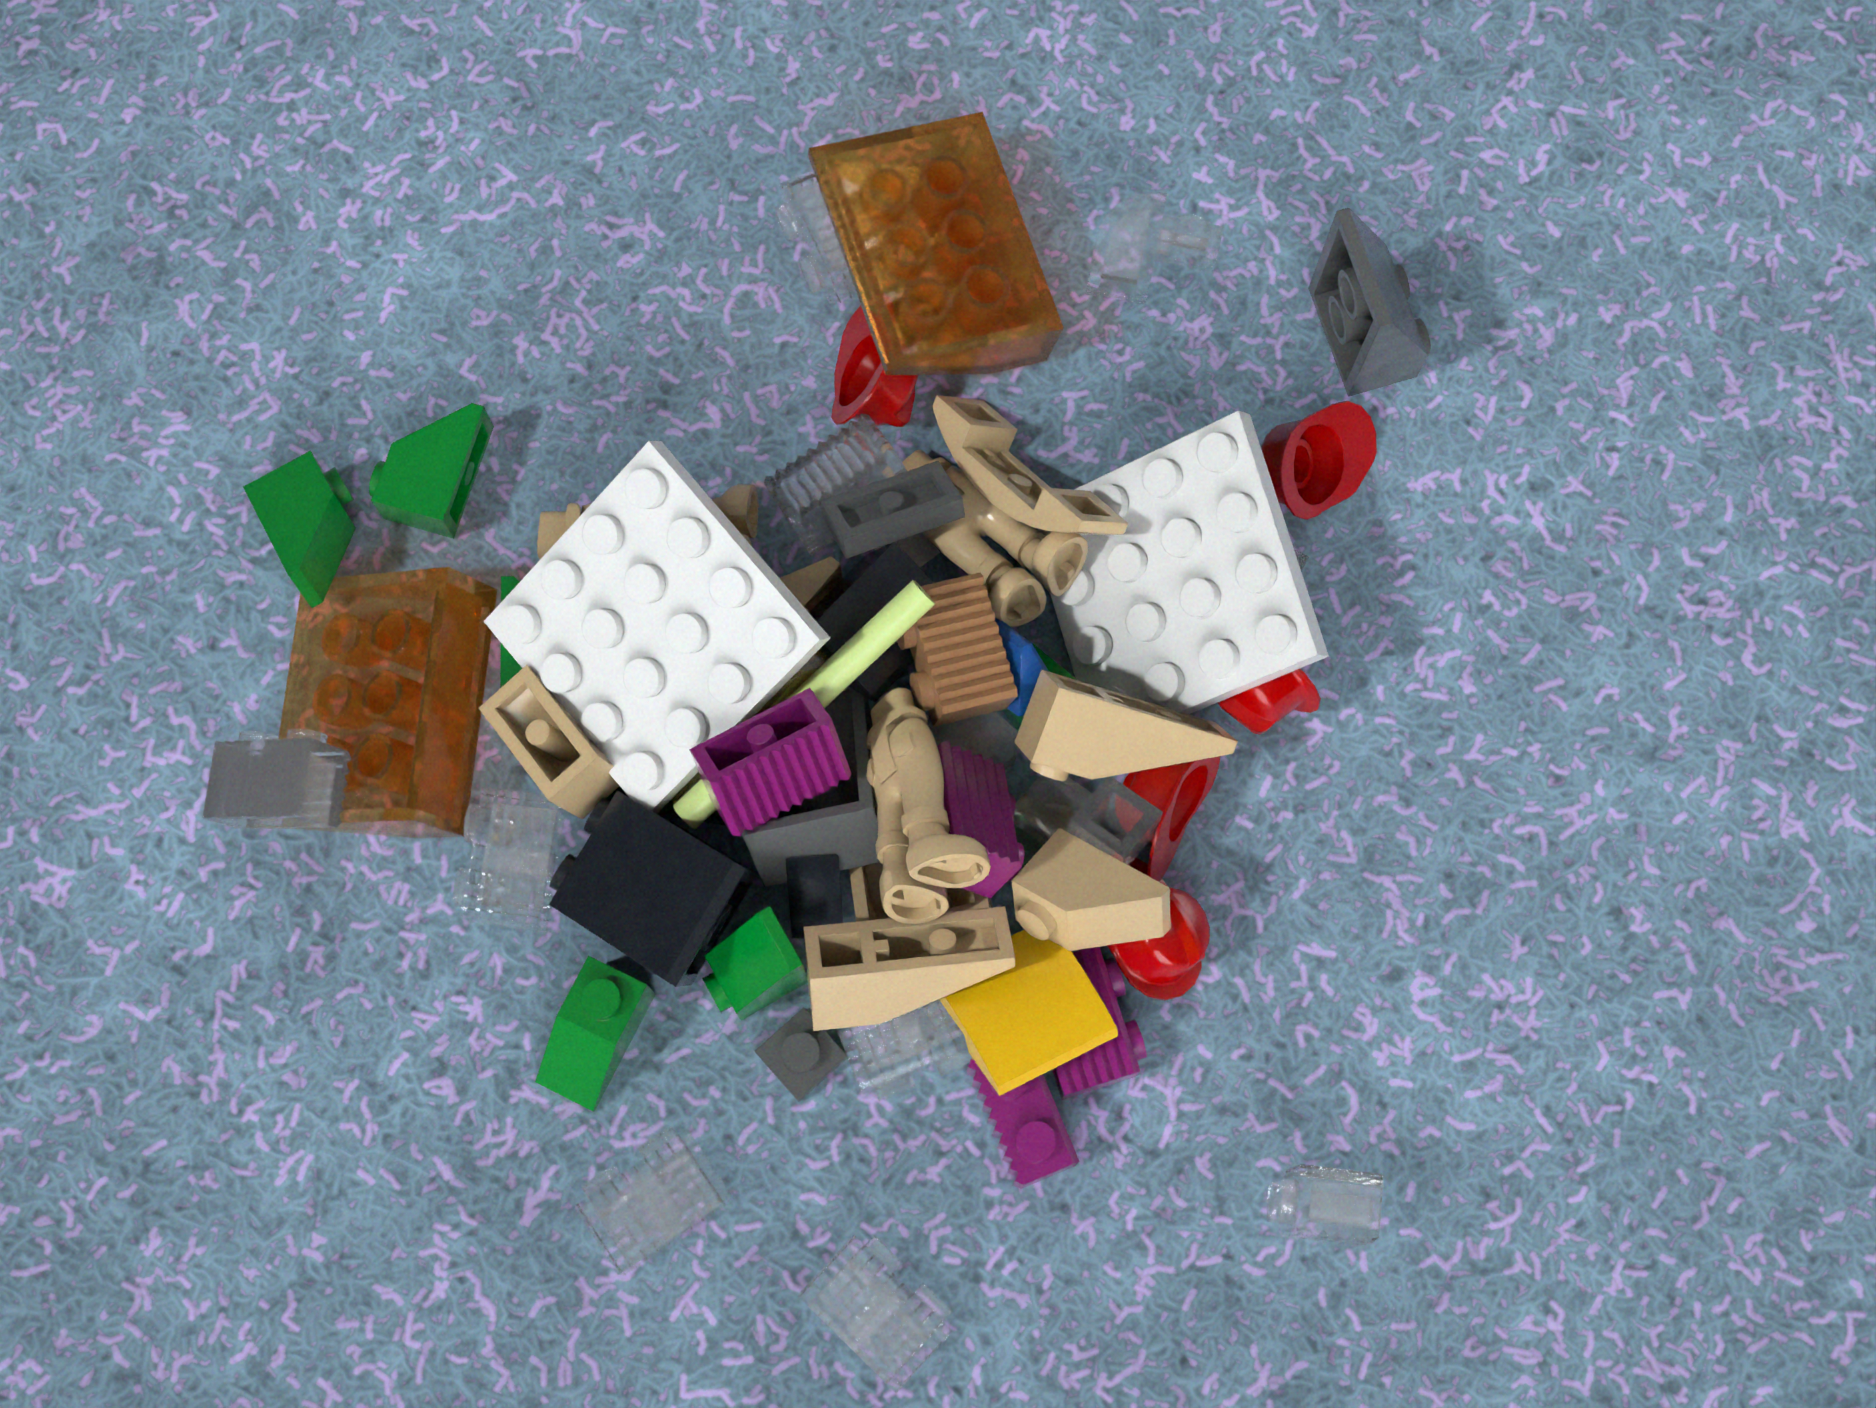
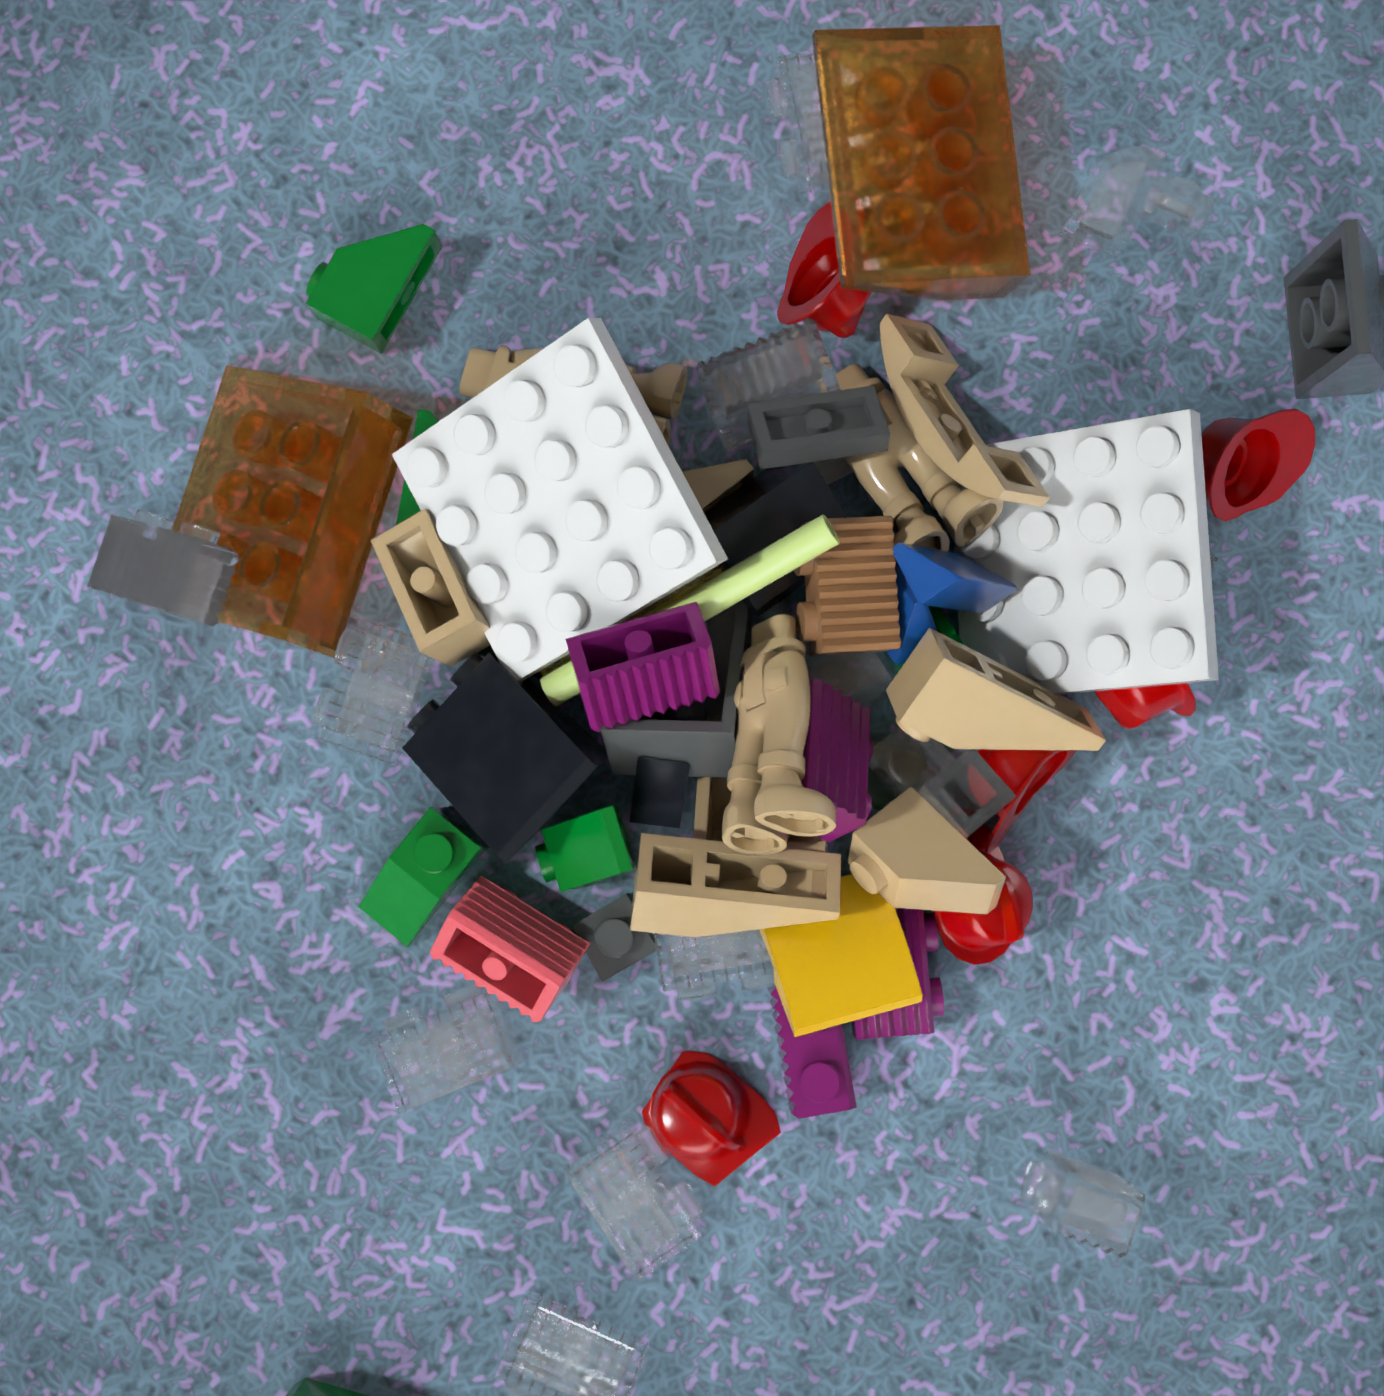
camera: 15 degrees right, 10 degrees up
(305, 521) = (237, 310): green slope -> none
(696, 1083) = (509, 948): none -> coral brick
(936, 1216) = (709, 1116): none -> red piece
(1053, 624) = (950, 579): none -> blue slope

